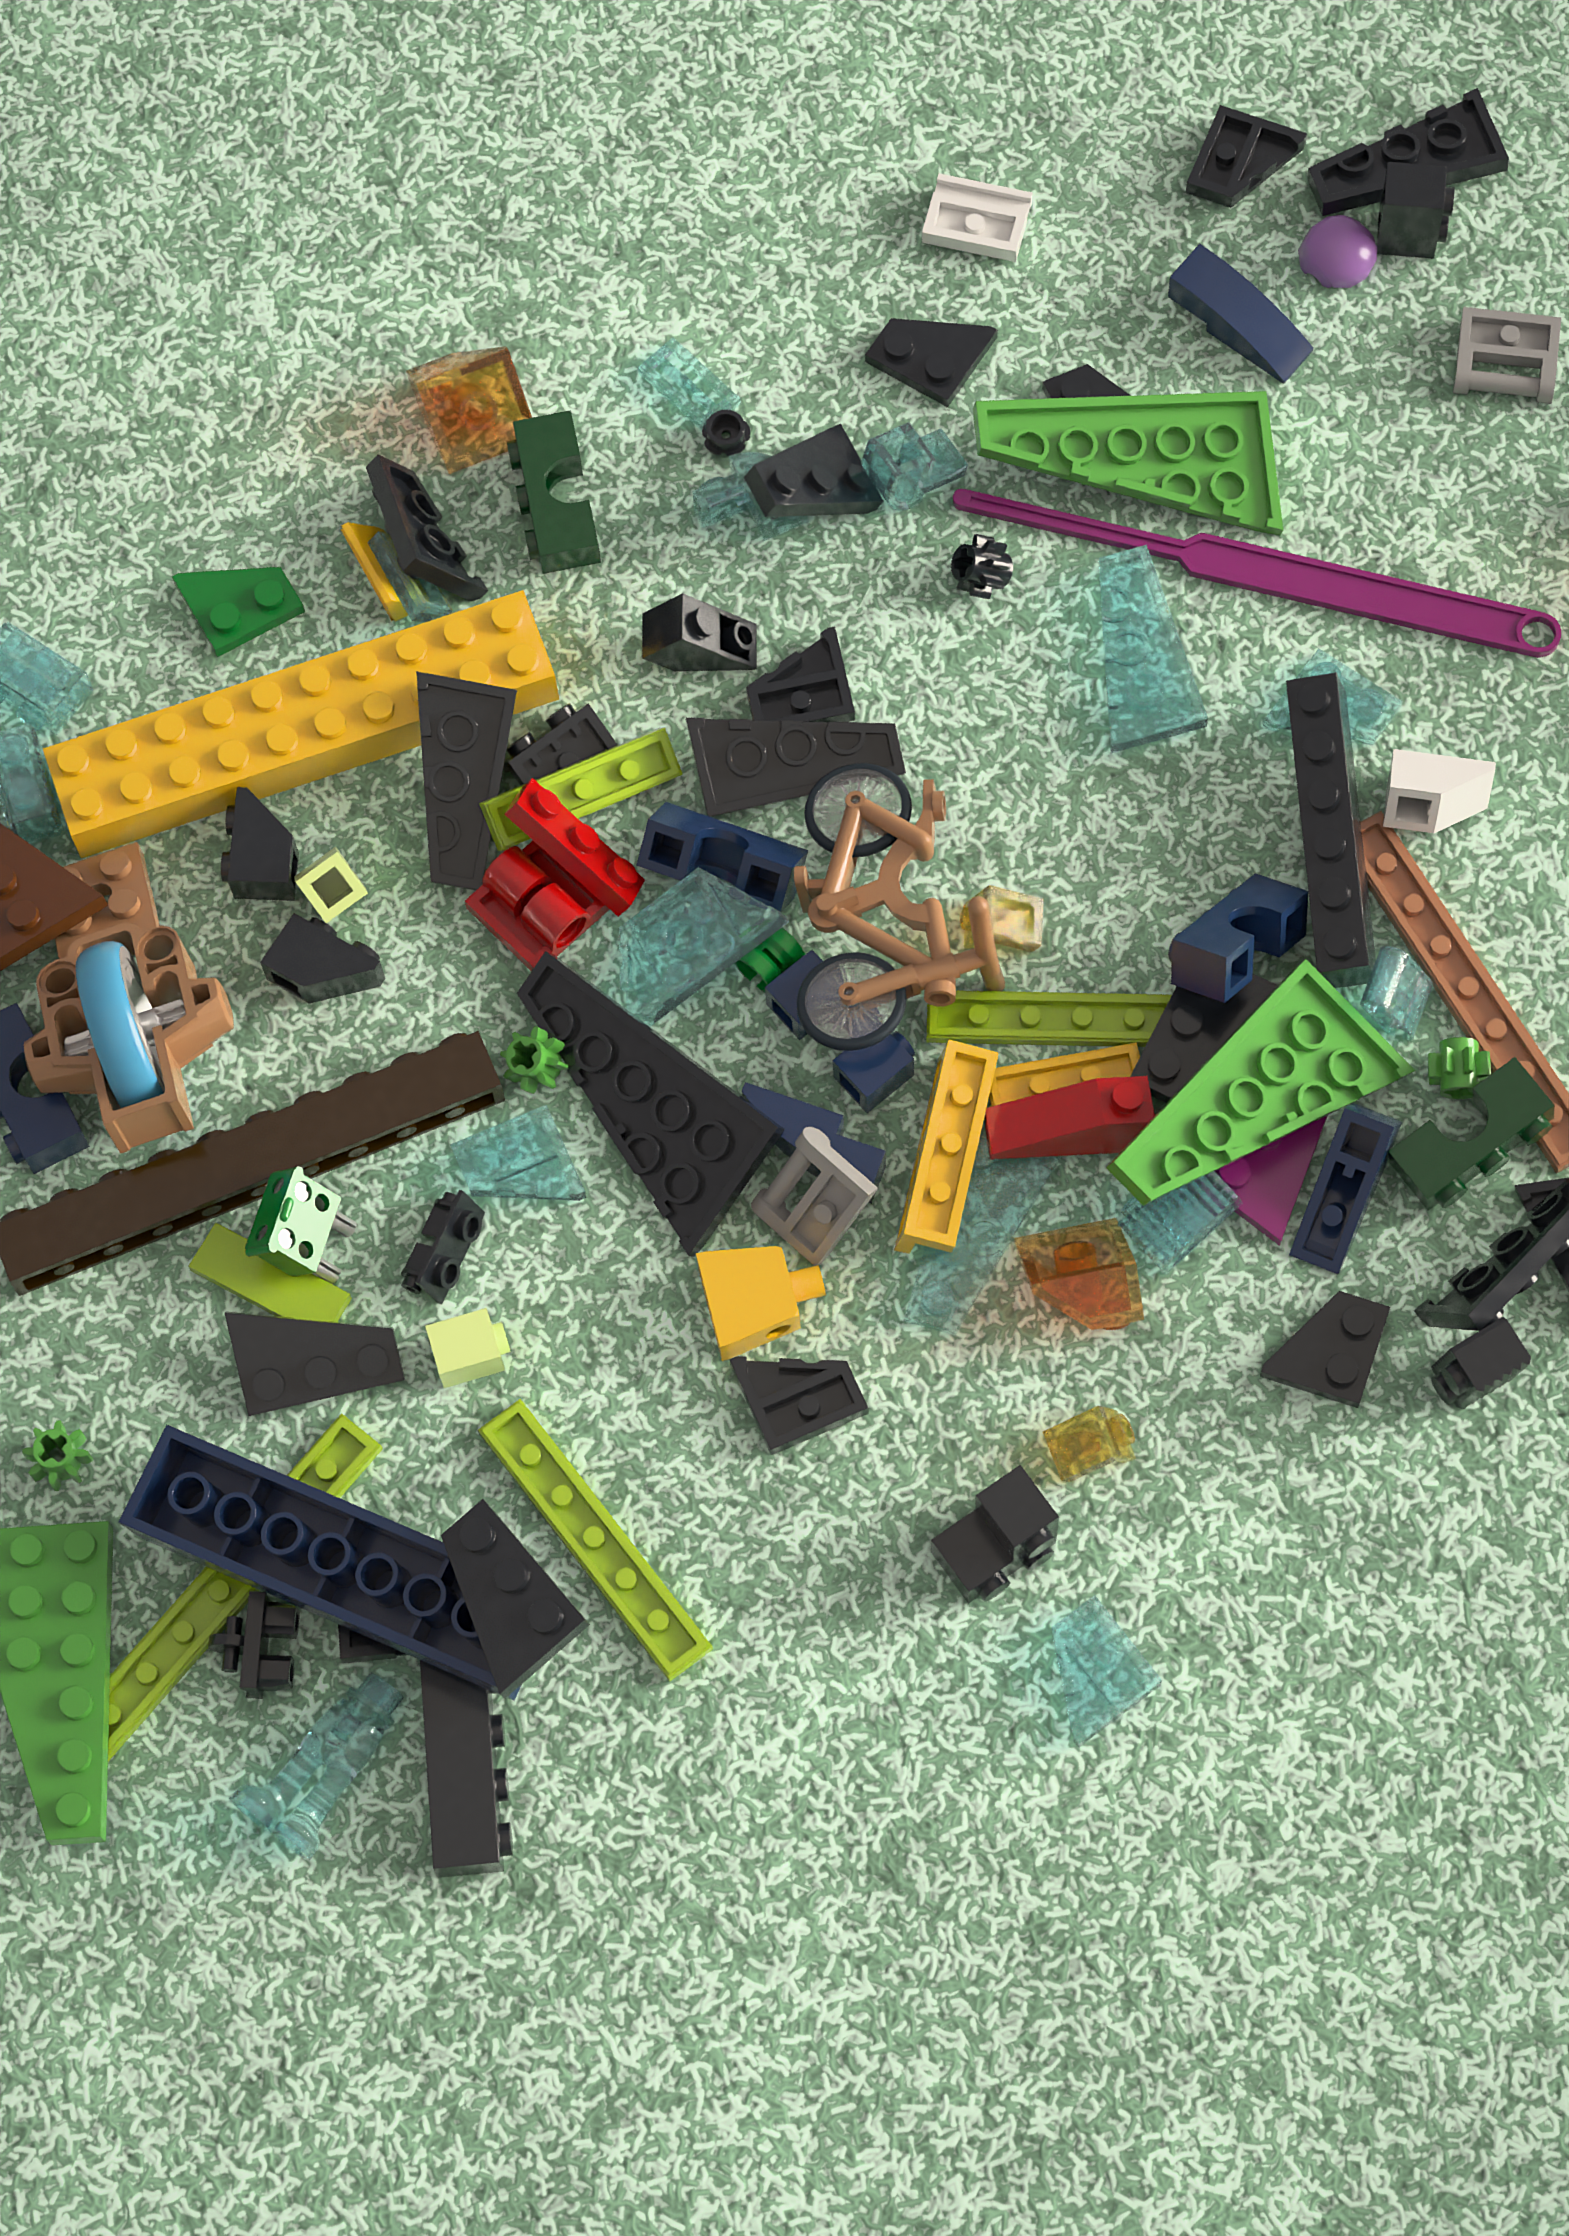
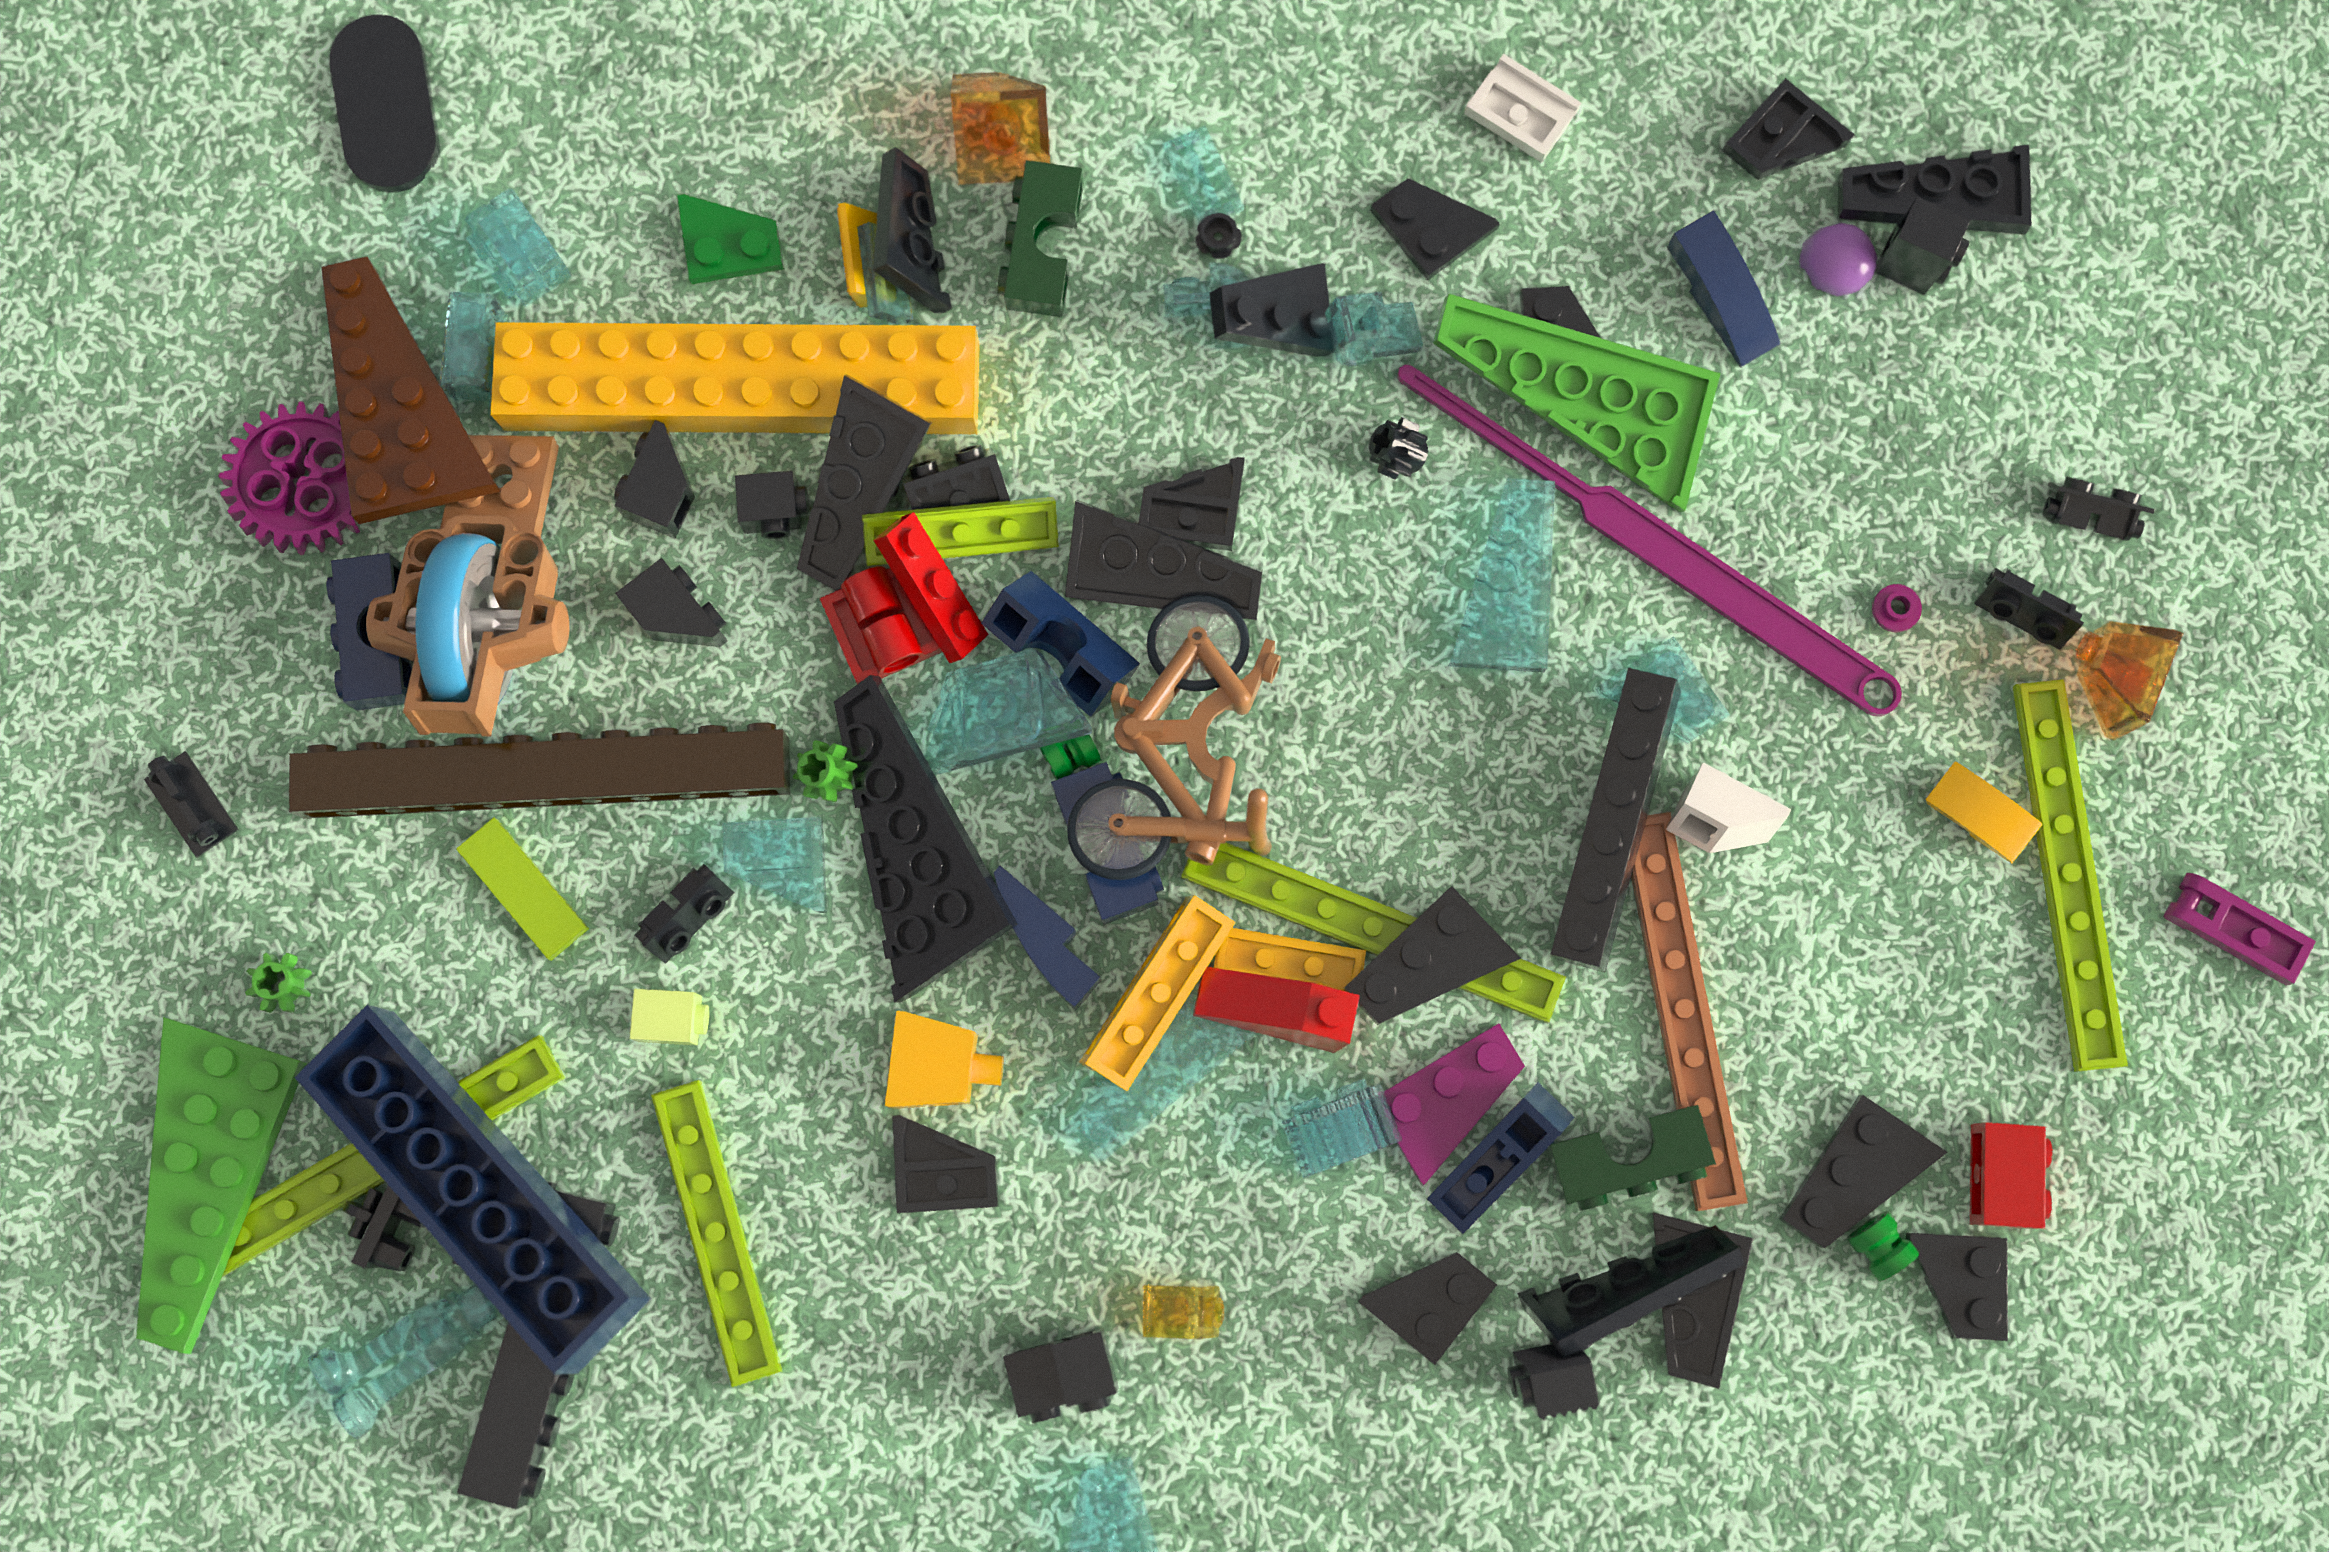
camera: 15 degrees right, 10 degrees up
(296, 1225) = (556, 851): piece -> none
(308, 1360) = (522, 977): black wing -> none
(330, 885) = (705, 542): yellowish green brick -> none
(380, 829) = (770, 503): none -> black brick
(510, 1598) = (593, 1297): black wing -> none
(697, 637) = (1119, 423): black slope -> none
(826, 1207) = (1027, 1010): light grey plate -> none
(1014, 919) = (1293, 790): clear yellow bracket -> none
(1084, 1273) = (1233, 1151): clear orange slope -> none
(1218, 947) = (1466, 905): dark blue arch -> none
(1275, 1074) = (1470, 1041): bright green wing -> none
(1396, 992) = (1616, 994): clear light blue piece -> none
(1458, 1067) = (1645, 1085): bright green gear -> none
(1507, 340) = (1961, 401): light grey plate -> none
(1521, 561) = (1887, 617): none -> magenta plate

